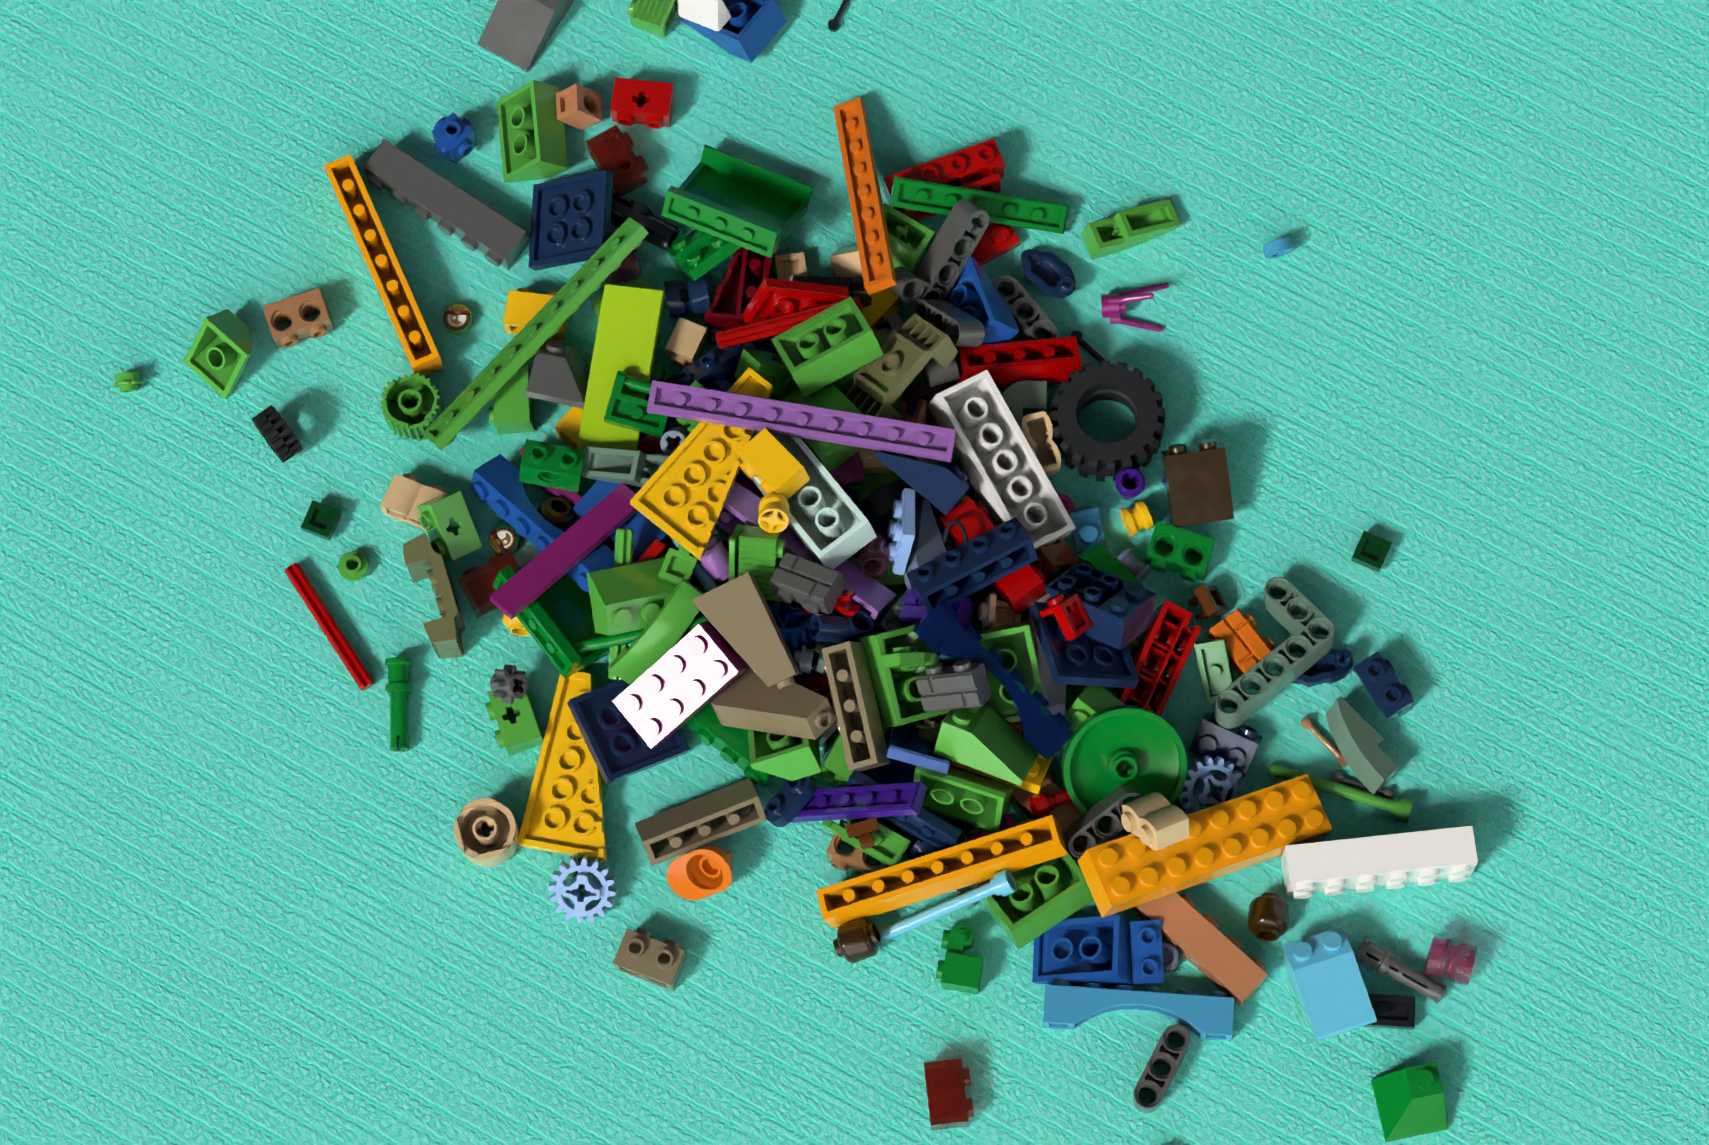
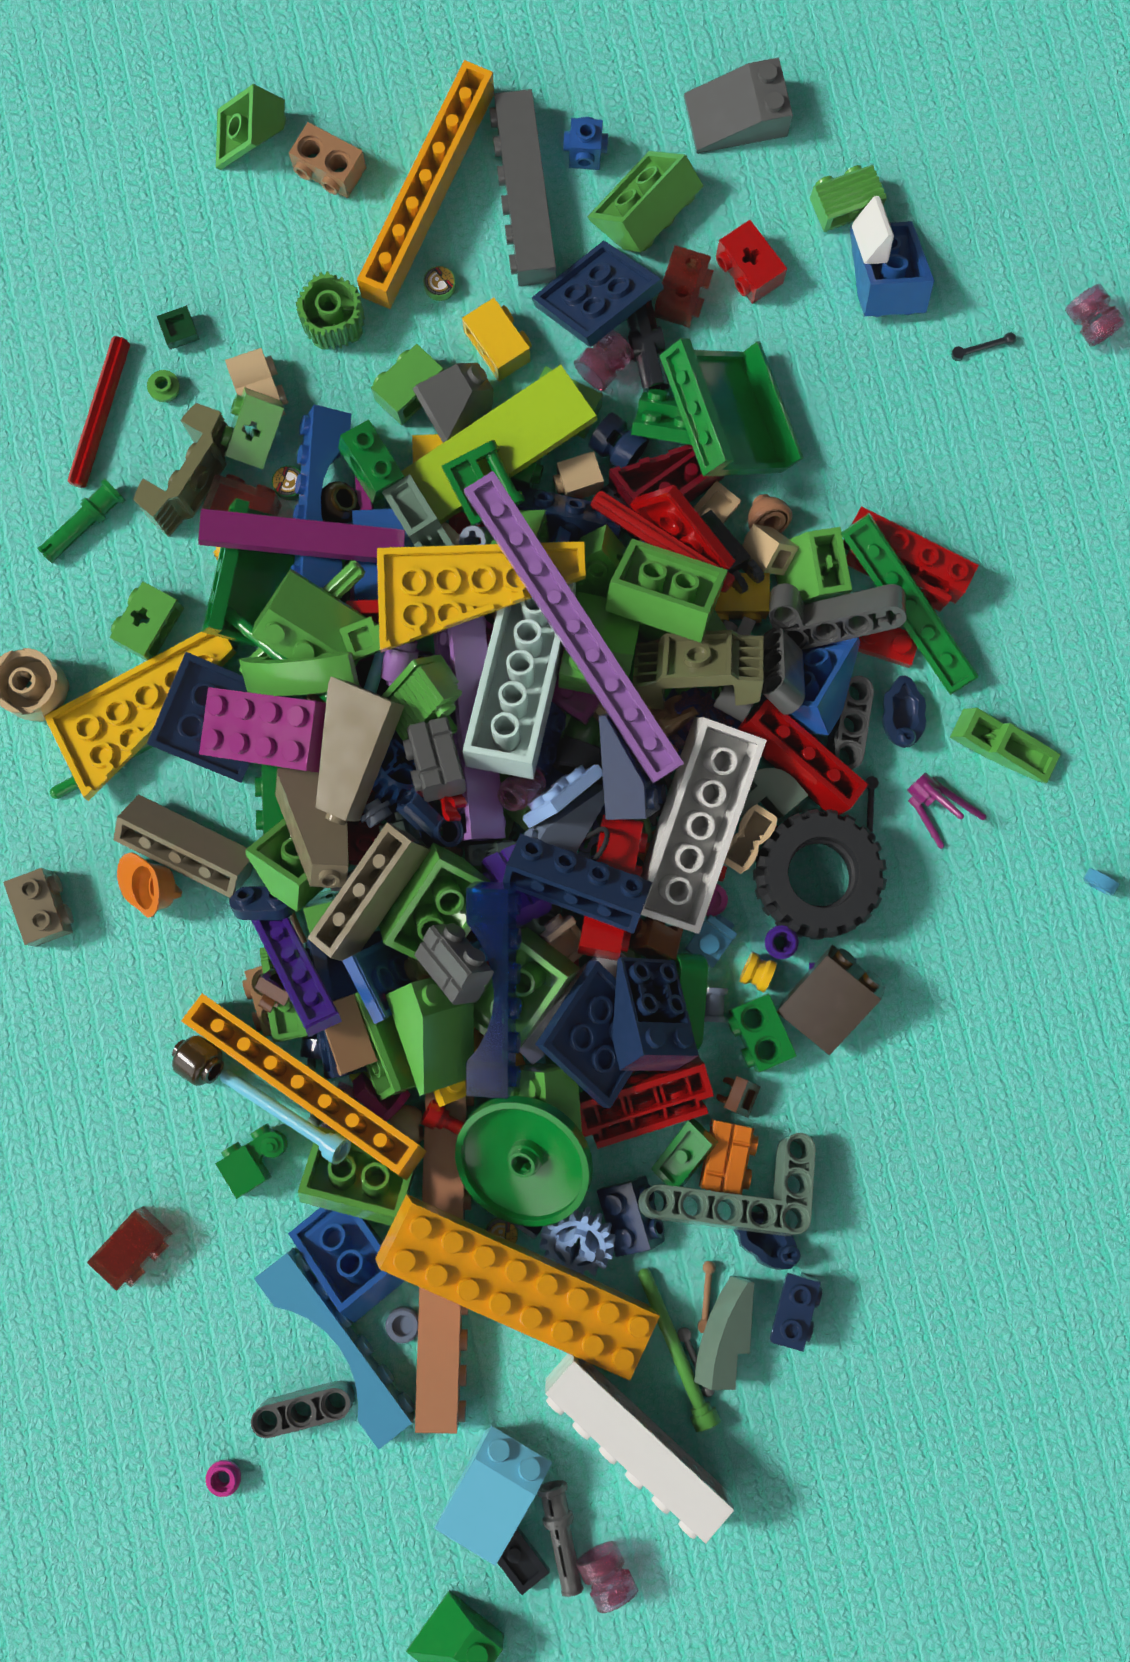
camera: 40 degrees right, 10 degrees up
(128, 381) = (161, 81): bright green plate -> none
(277, 433) = (213, 228): black tyre -> none
(508, 684) = (156, 591): dark grey gear -> none
(535, 333) = (481, 348): bright green plate -> none
(579, 106) = (700, 214): nougat brick -> none
(594, 888) = (48, 801): light blue gear -> none
(772, 465) = (510, 638): yellow brick -> none
(775, 521) = (467, 676): yellow wheel -> none
(829, 241) = (770, 512): none -> nougat brick
(864, 196) = (829, 507): orange plate -> none
(904, 657) = (439, 901): bright green plate -> none
(944, 802) = (349, 1038): none -> medium nougat hinge
(1069, 614) = (610, 1000): red bracket -> none
(1087, 823) = (462, 1185): dark grey beam -> none
(1146, 951) = (389, 1311): blue hinge -> none
(1155, 821) = (487, 1241): tan brick -> none
(1268, 917) = (510, 1385): dark brown head -> none
(1371, 551) = (906, 1193): dark green plate -> none

